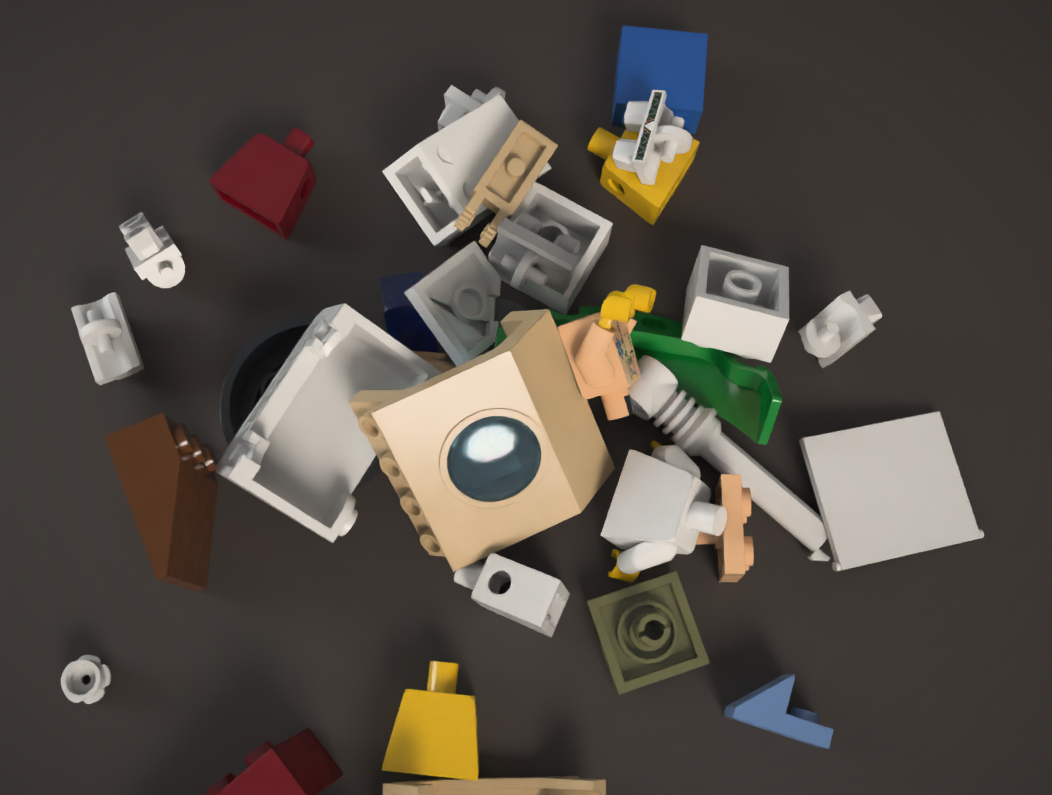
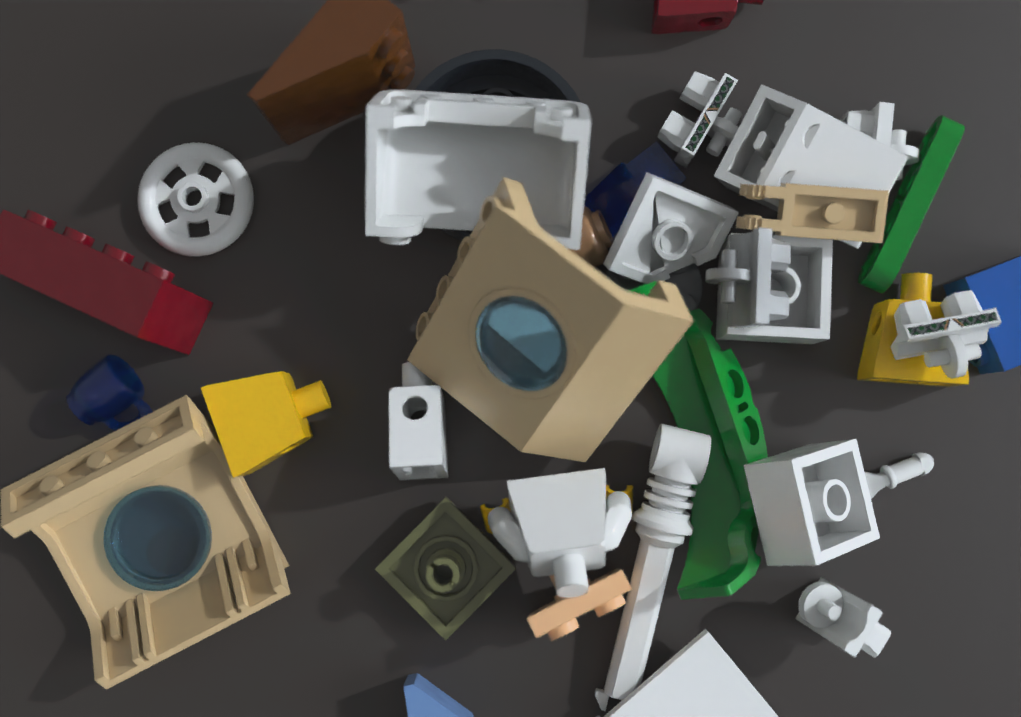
camera: 65 degrees right, 10 degrees up
(73, 675) = (147, 76): white plate -> none
(229, 730) = (223, 228): none -> white plate
(389, 251) = (709, 97): none -> white hips
(533, 109) = (911, 204): none -> green beam
(603, 350) = (688, 394): light nougat torso -> none
(743, 228) = (899, 472): none -> white piece

